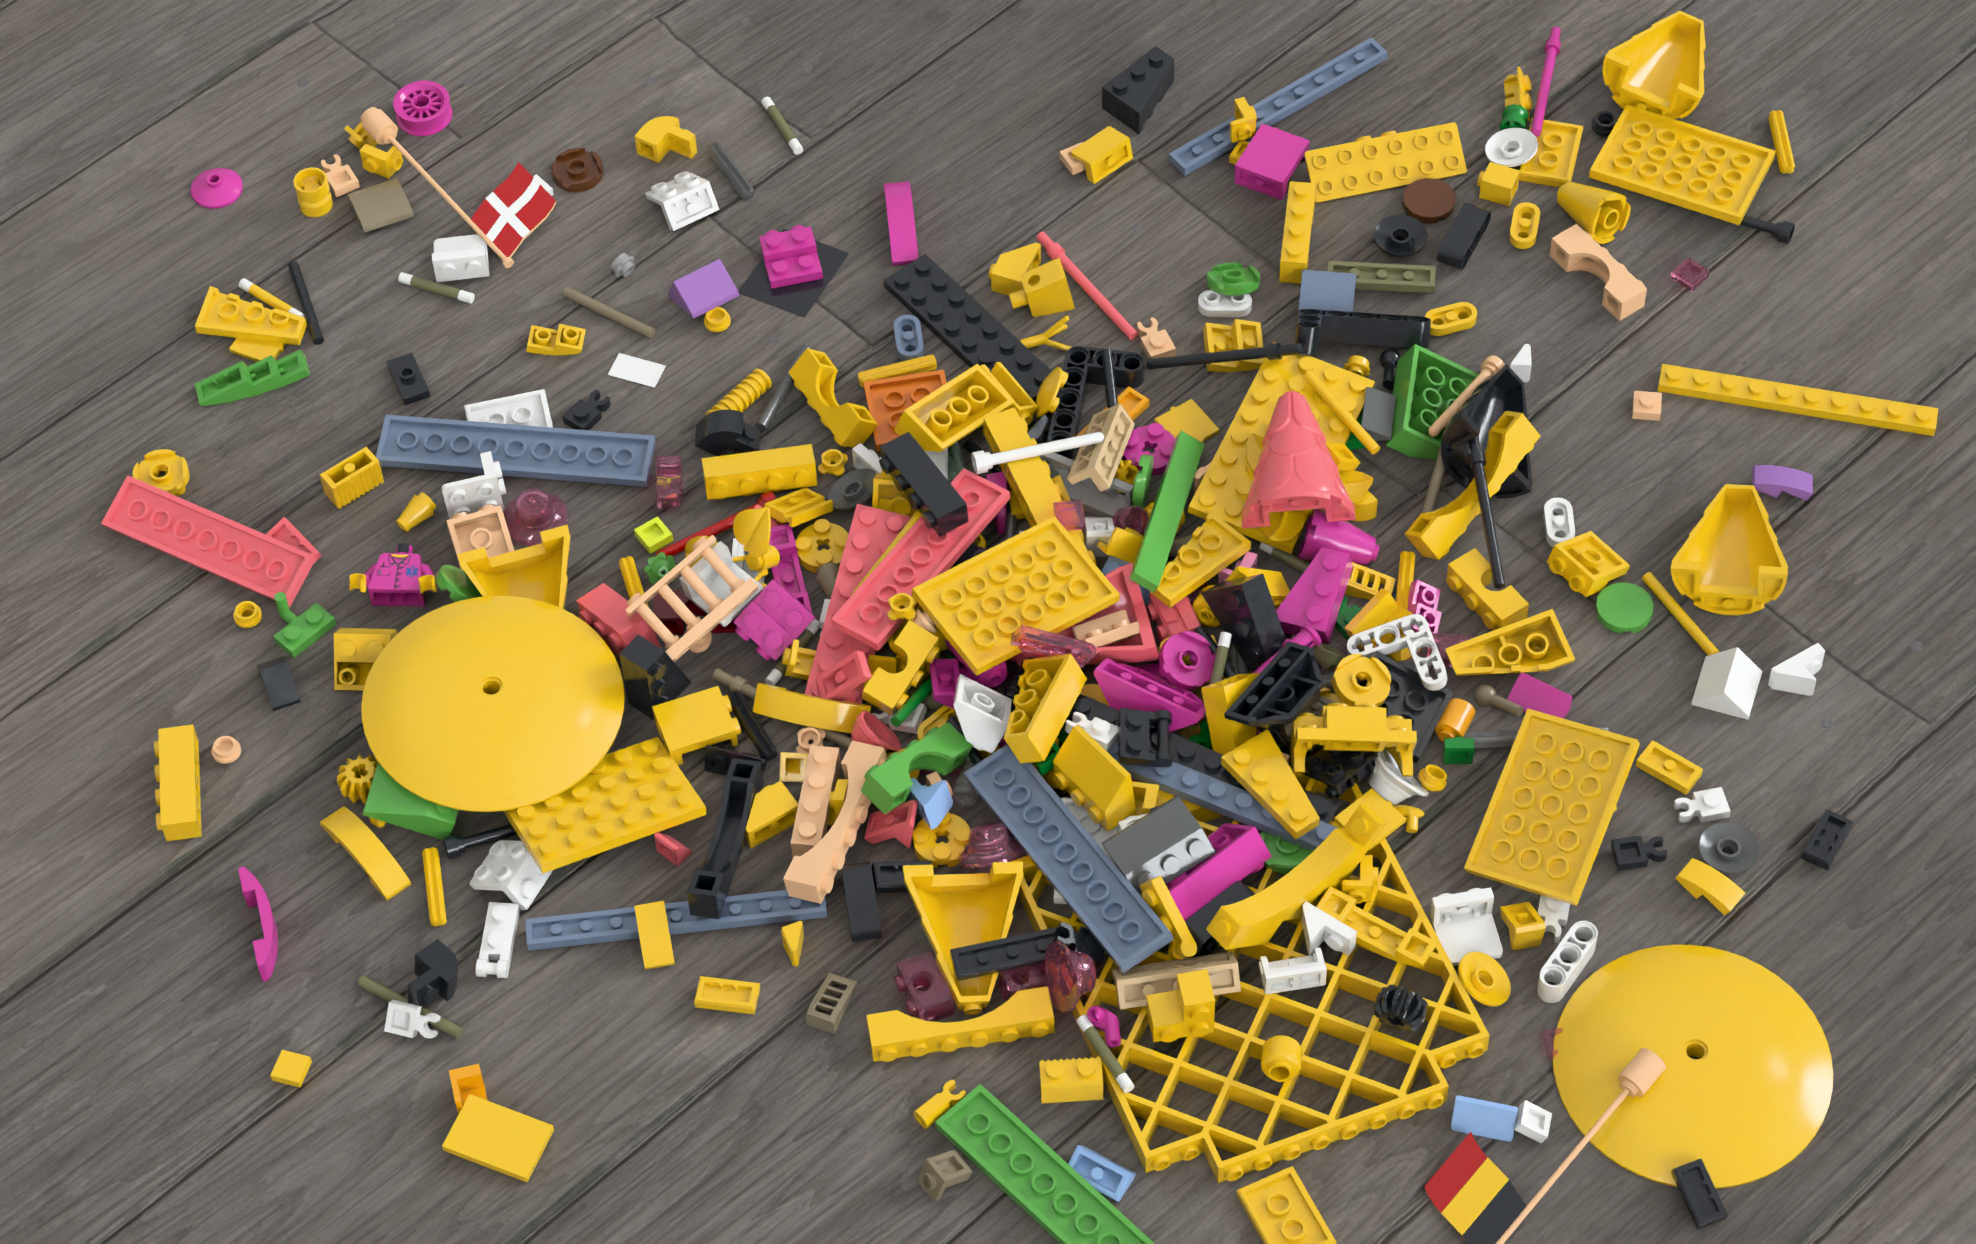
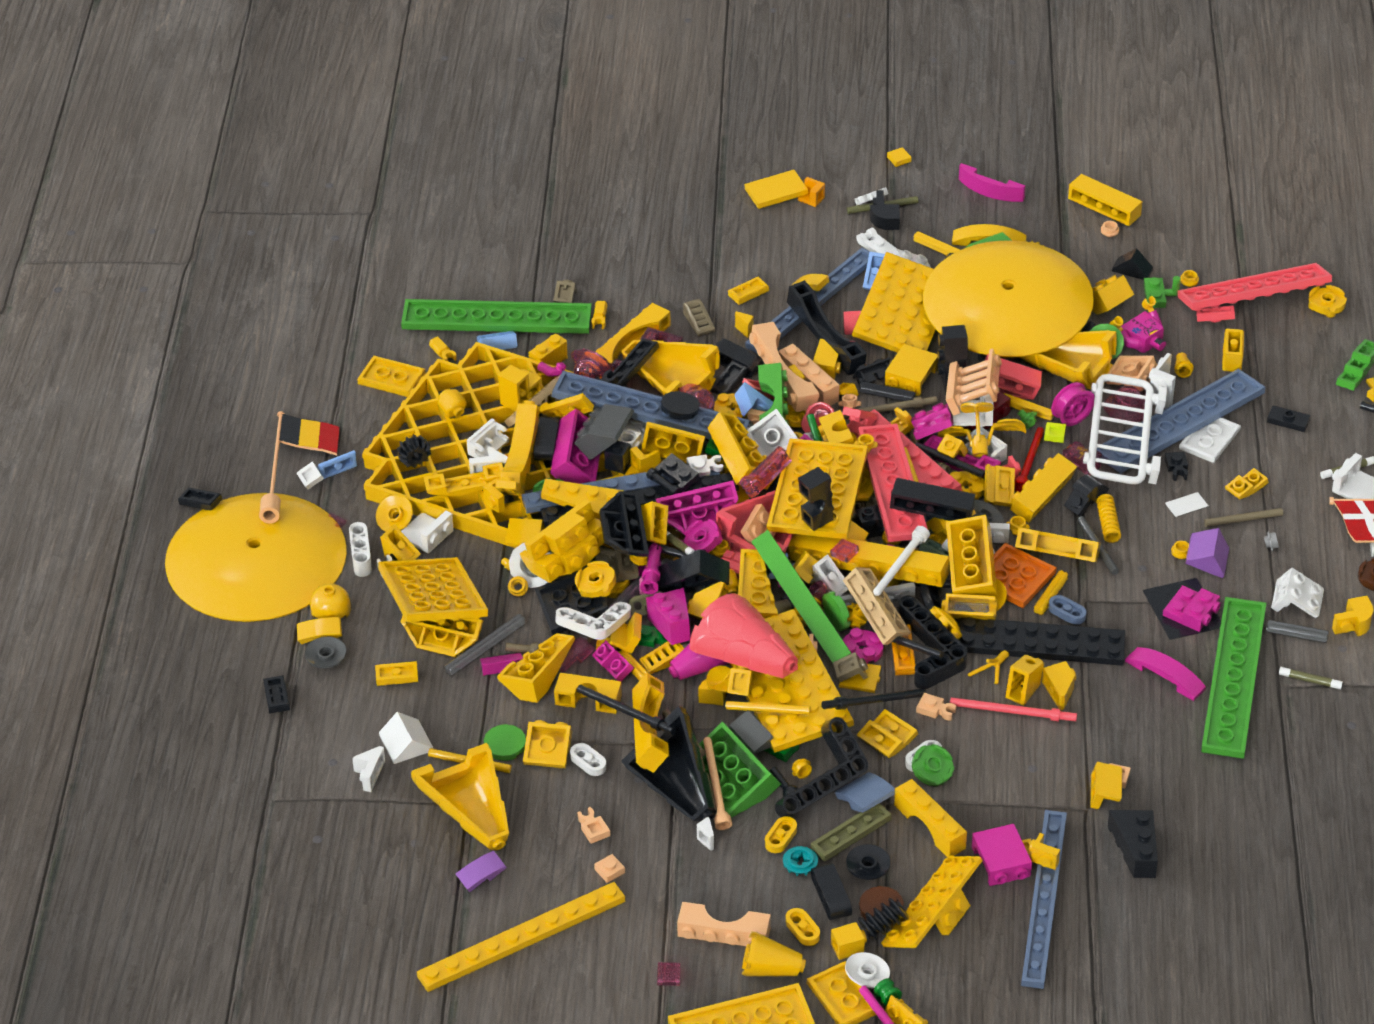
camera: 135 degrees right, 10 degrees down
(563, 887) = (873, 265): none -> light blue slope
(605, 530) = (1072, 404): none -> dark pink wheel
(630, 406) = (1151, 398): none -> white bar
(794, 572) = (952, 447): none -> yellow bracket
(806, 709) = (882, 398): yellow slope -> none
(809, 572) = (952, 461): none -> black bar
(848, 169) = (1234, 678): none -> bright green plate
(1033, 825) = (680, 405): none -> black tile
(1064, 528) = (817, 490): none -> black arch
(1105, 1054) = (536, 360): olive bar -> none
(1185, 1206) = (442, 349): none -> yellow bar
(1196, 422) = (850, 666): none -> dark tan bracket
(1452, 167) = (883, 918): none -> black piece
(1455, 719) = (535, 618): light orange brick -> none
(1458, 750) = (517, 605): green plate -> none
(1460, 278) = (793, 856): none -> teal gear
(1624, 450) = (593, 828): none -> light nougat plate
(1633, 853) = (374, 620): black plate -> none
(1665, 916) = (330, 601): none -> yellow cylinder
(1705, 804) = (359, 673): white plate -> none

